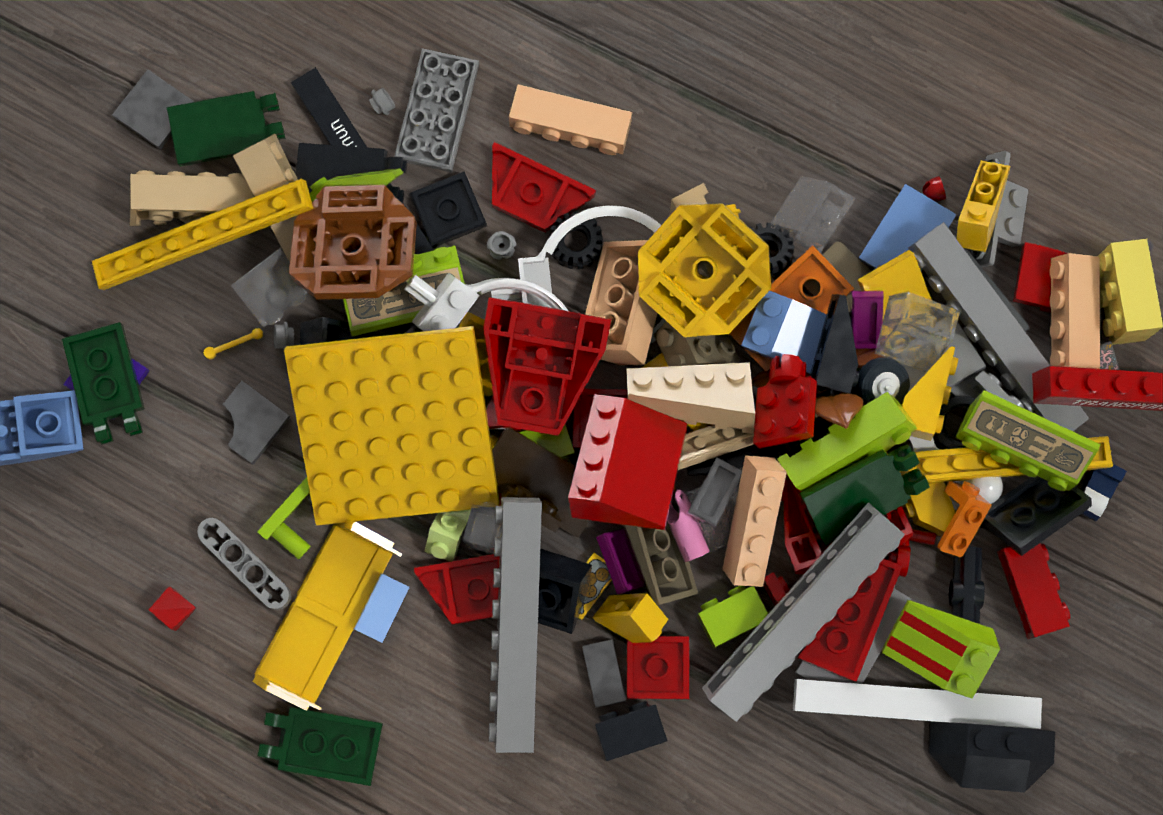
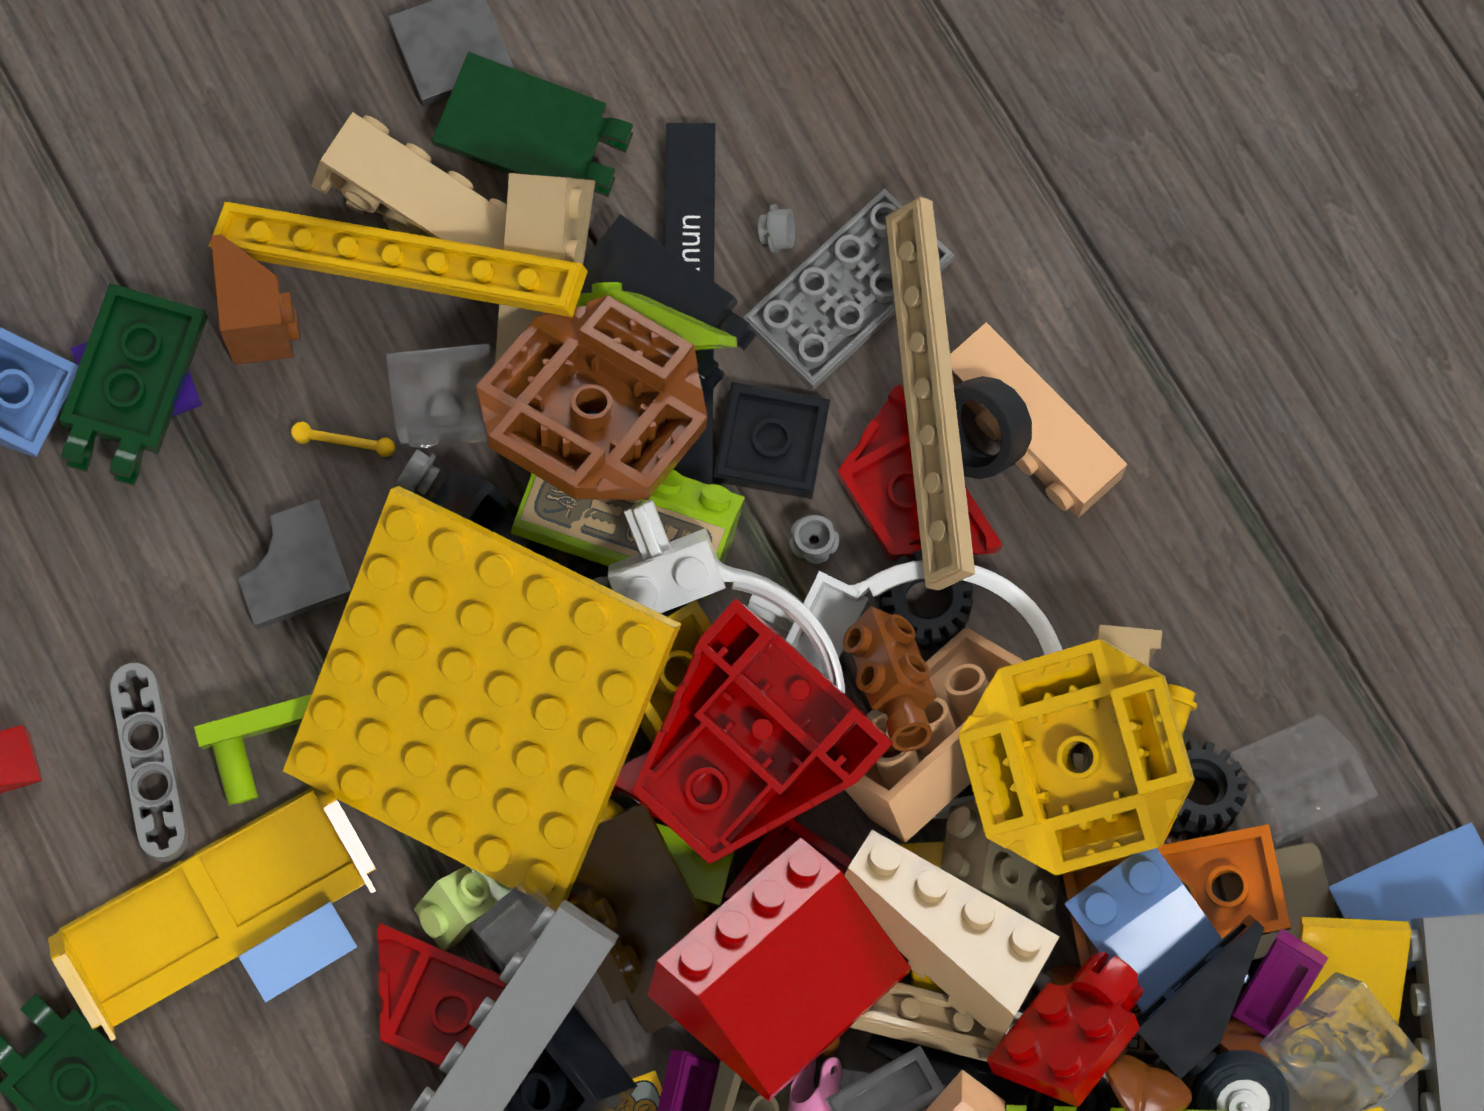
camera: 30 degrees right, 5 degrees down
(146, 306) = (252, 309): none -> dark orange slope
(514, 137) = (929, 395): none -> tan tile
(543, 156) = (1012, 420): none -> black tyre
(587, 287) = (892, 675): none -> dark orange brick

